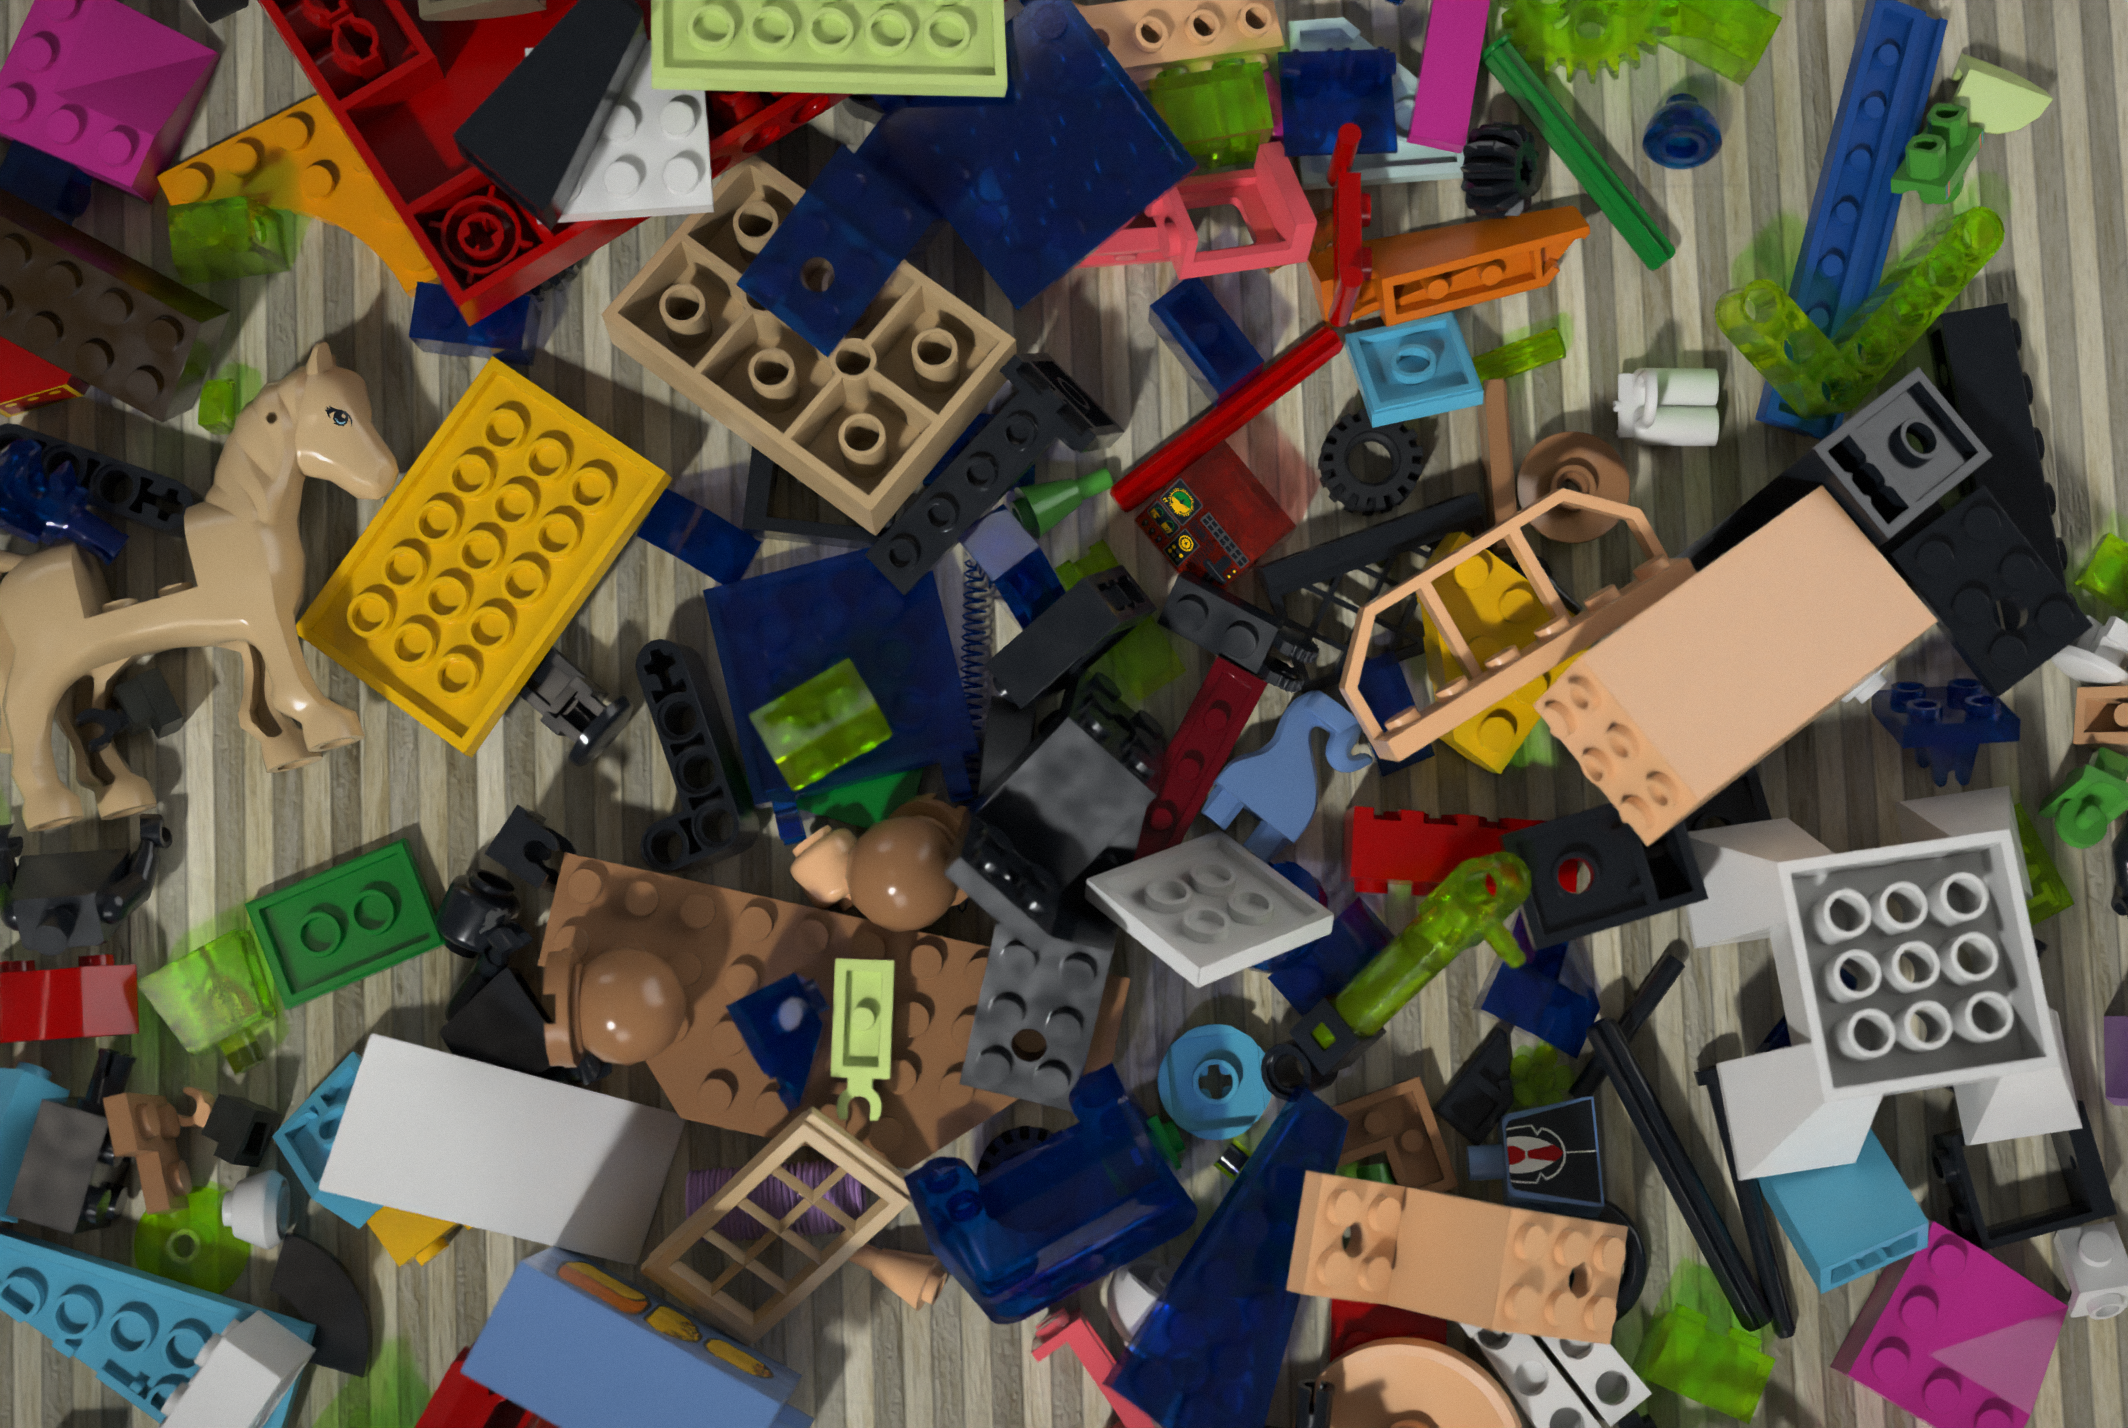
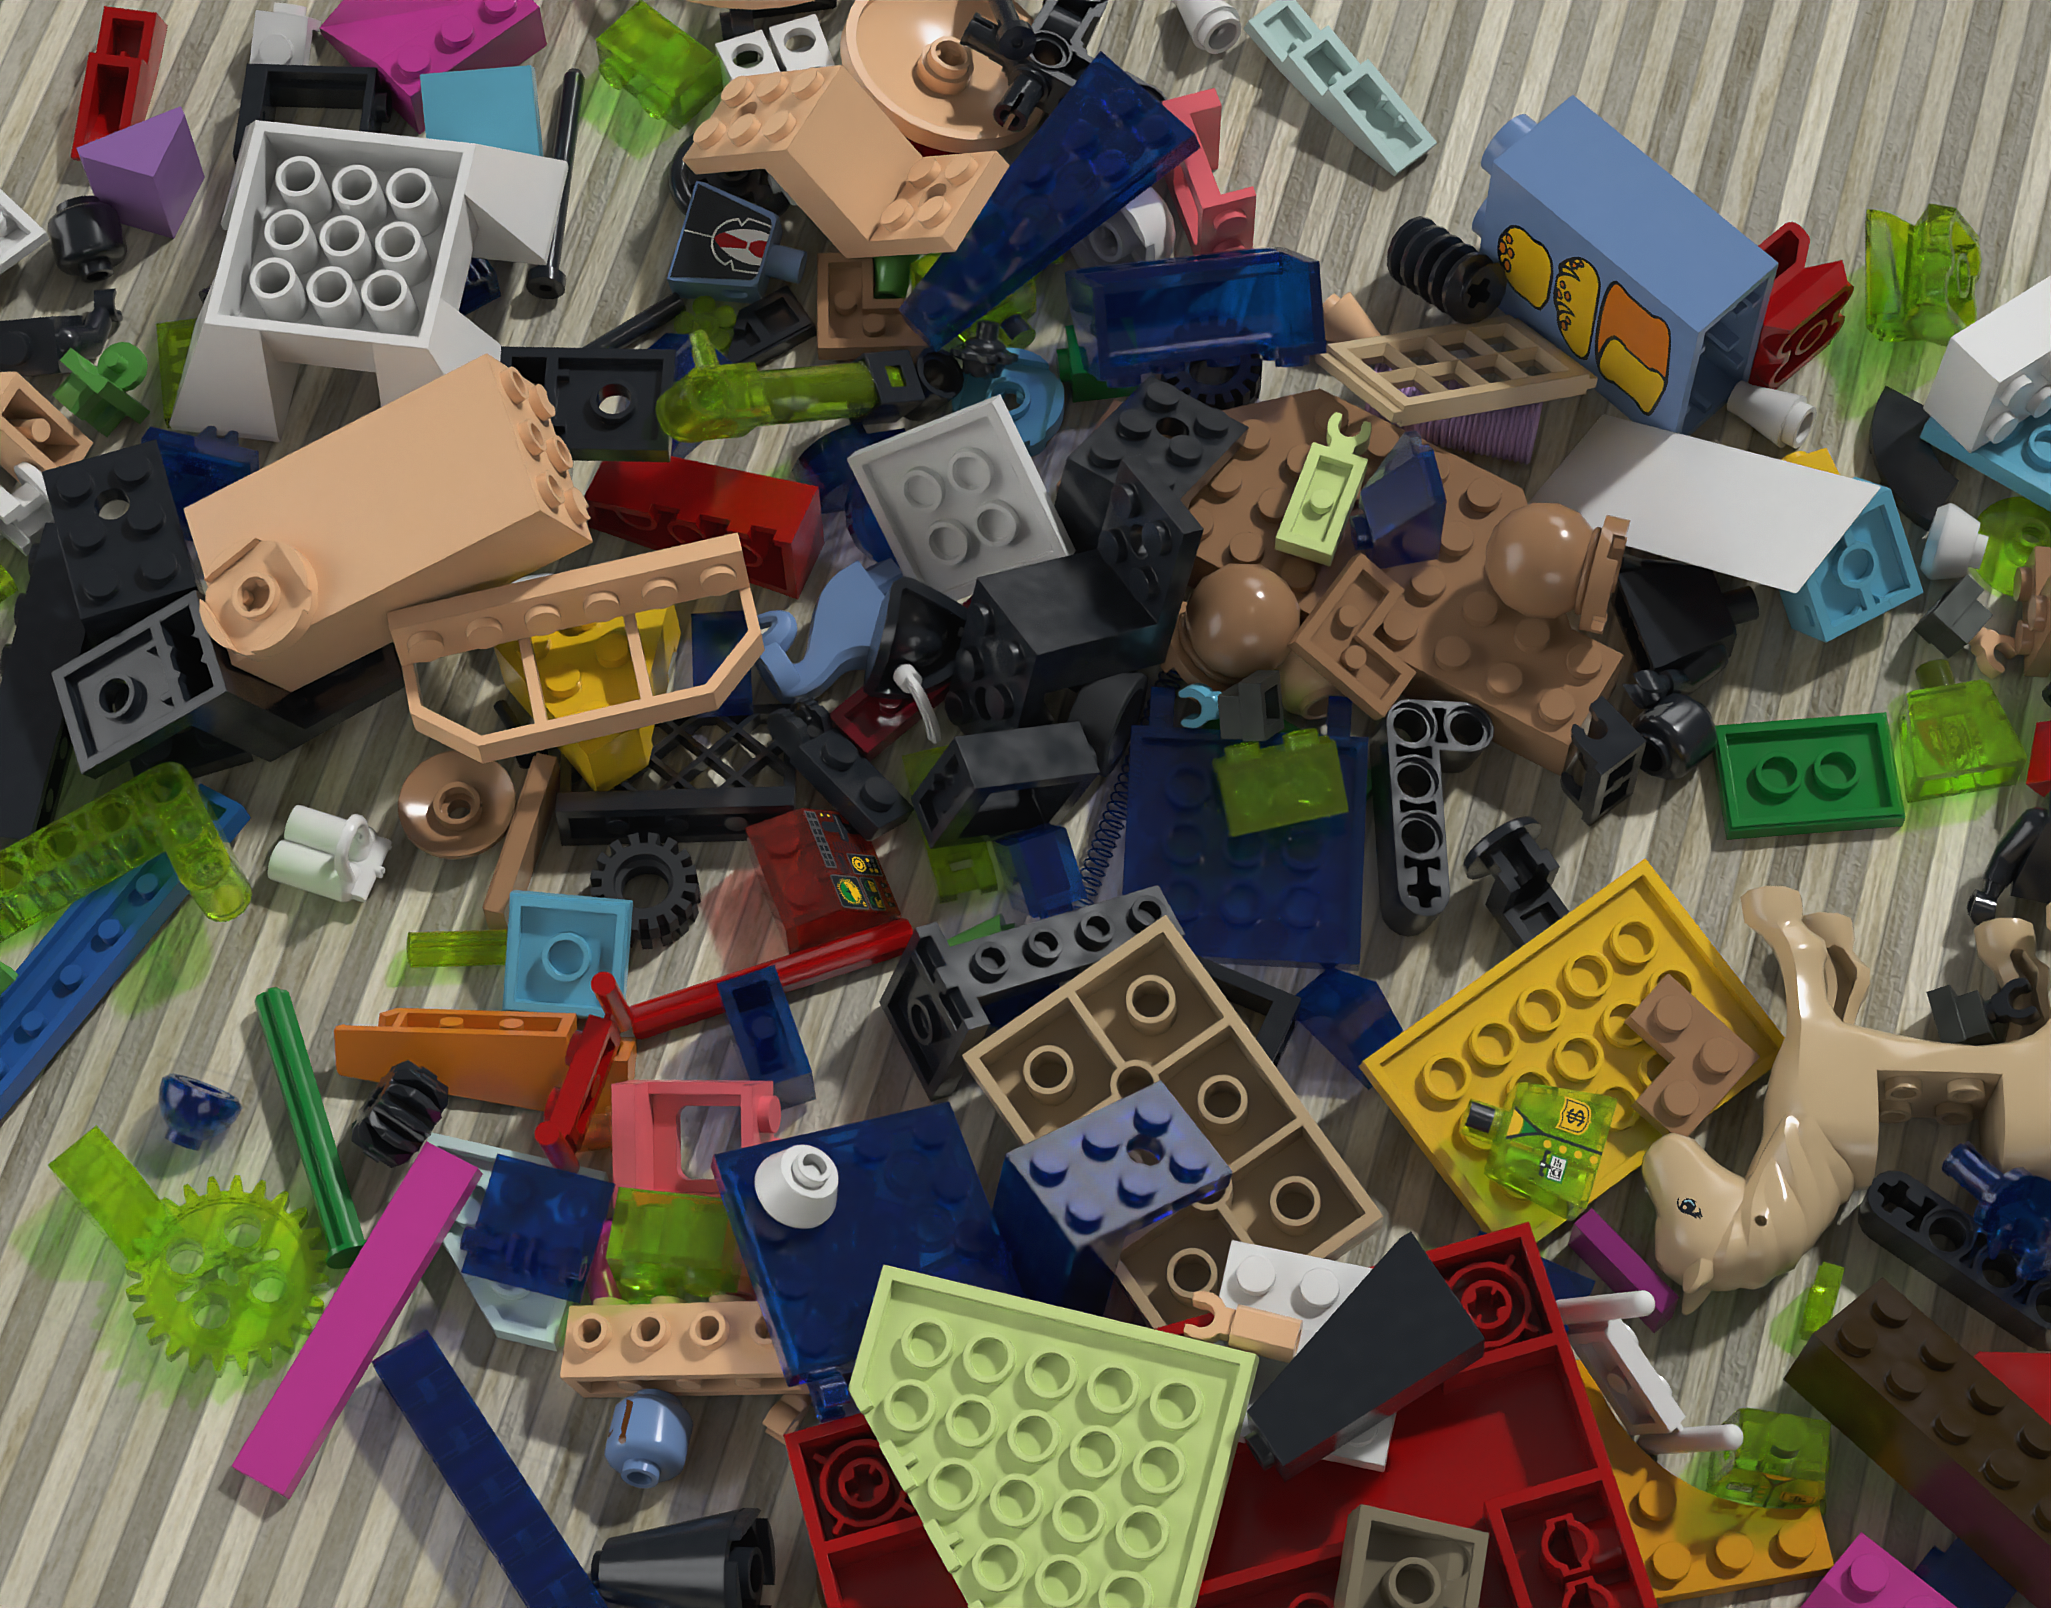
camera: 160 degrees left, 20 degrees down
(344, 254) = (1628, 1379): none -> white plate
(369, 580) = (1701, 1056): none -> medium nougat plate
(394, 376) = (1621, 1266): none -> magenta tile
(459, 1306) = (1774, 413): none -> white cone
(483, 448) = (1544, 1143): none -> clear neon green torso
(671, 111) = (1247, 1329): none -> light nougat bar
(803, 882) = (1340, 641): none -> medium nougat plate
(828, 1353) = (1445, 271): none -> black piece
(870, 781) = (1245, 710): none -> pearl dark grey piece
(1116, 134) = (798, 1186): none -> white cone
(1203, 761) = (914, 646): none -> black hat
(1250, 1107) = (984, 354): none -> black plant
(1679, 1174) = (615, 214): black axle -> none
(1804, 562) = (229, 594): none -> light nougat plate

